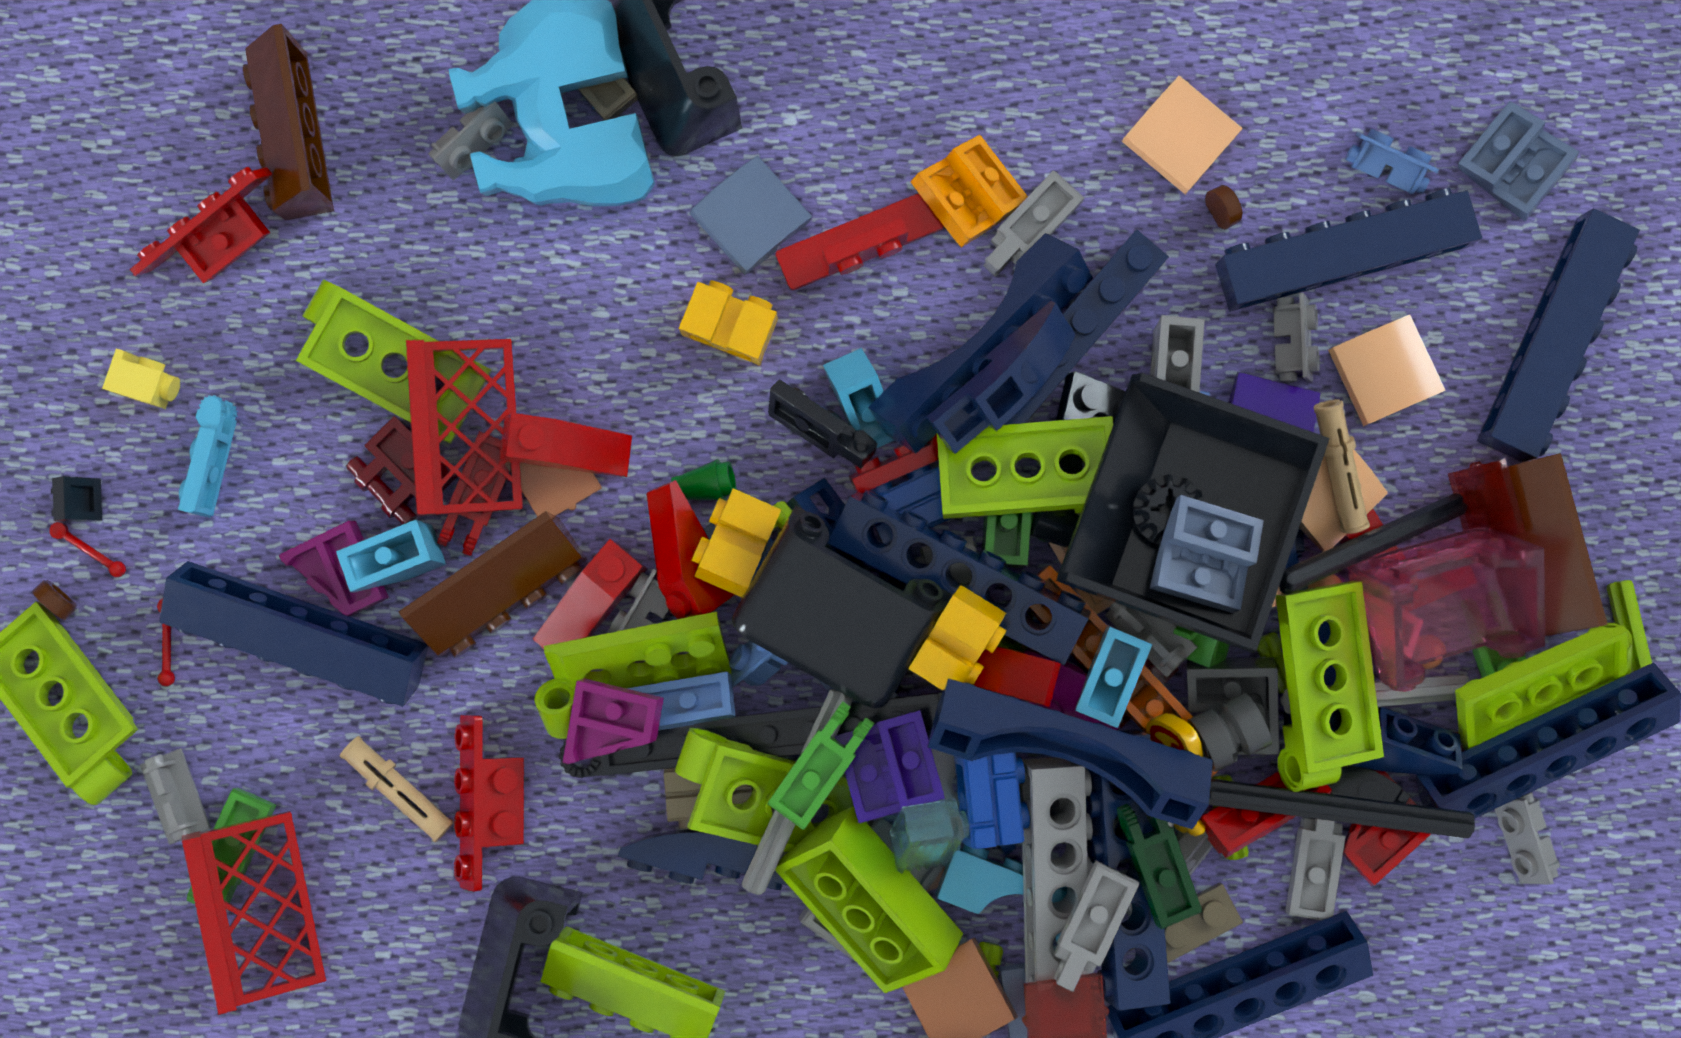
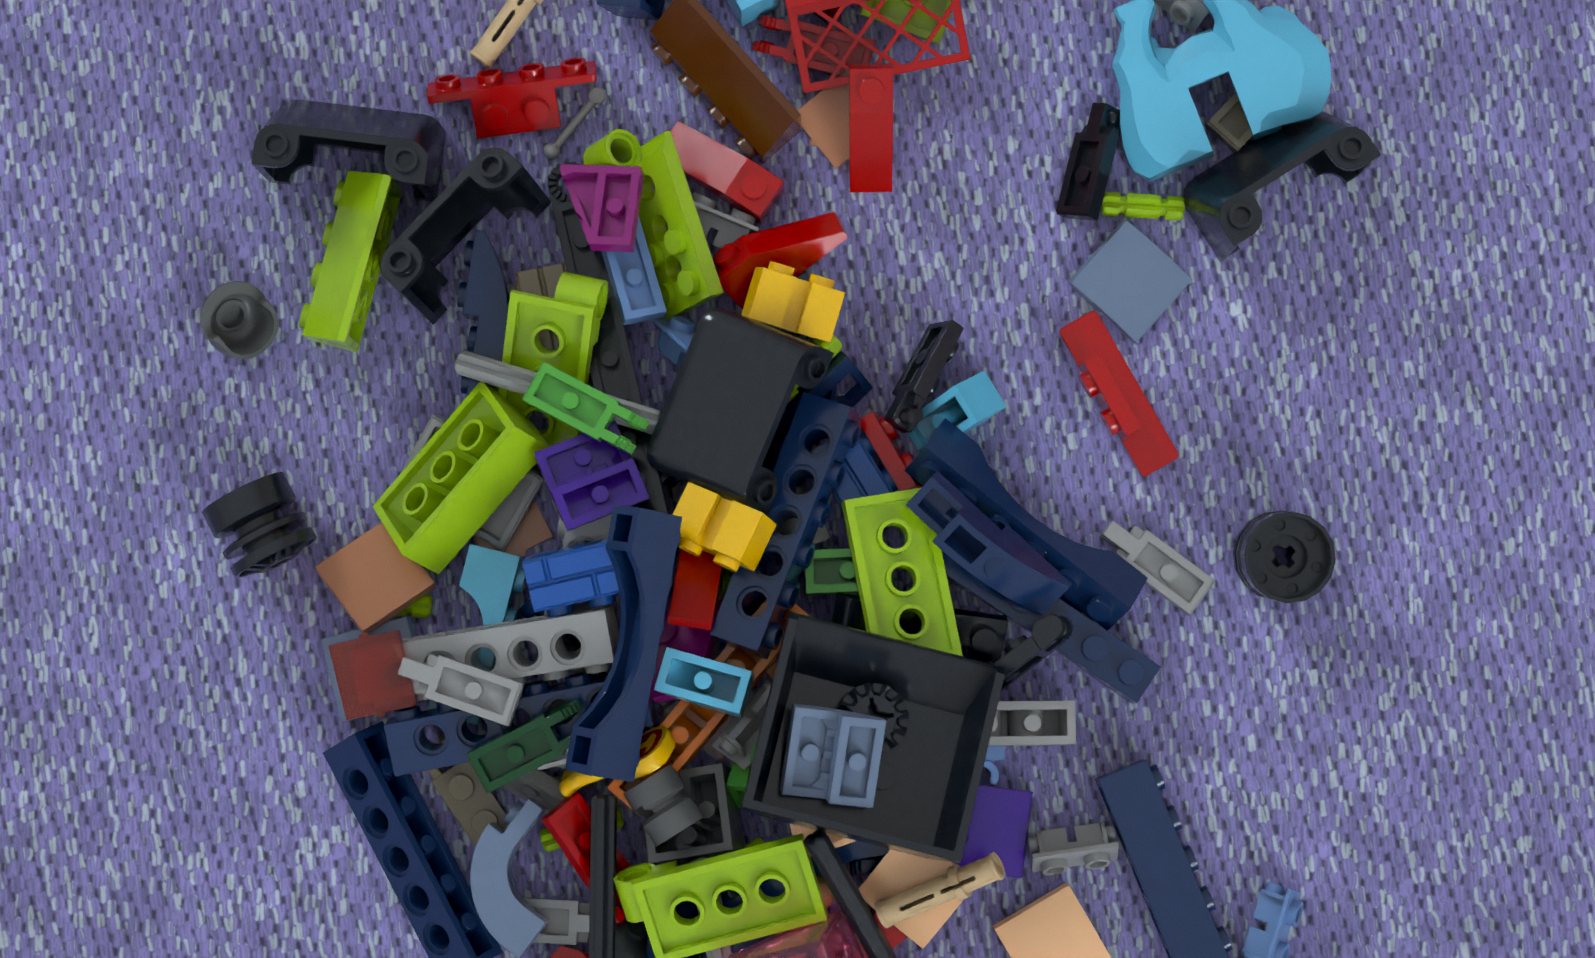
camera: 85 degrees right, 0 degrees up
(497, 718) = (596, 97): none -> light grey hinge
(632, 238) = (1090, 165): none -> black hinge
(642, 926) = (487, 182): none -> black windscreen
(678, 193) = (1143, 206): none -> lime axle
(708, 481) = (853, 271): green cone -> none
(728, 322) = (1016, 272): yellow brick -> none
(928, 834) = (530, 521): clear light blue brick -> none
(969, 190) = (1184, 498): light orange slope -> none
(1044, 76) = (1309, 556): none -> black wheel
(1112, 357) = (1027, 652): none -> black hinge
(1182, 134) = (1271, 709): light nougat slope -> none
(1224, 206) = (1200, 759): reddish brown tile -> none
(1298, 911) = (493, 889): none -> sand blue arch

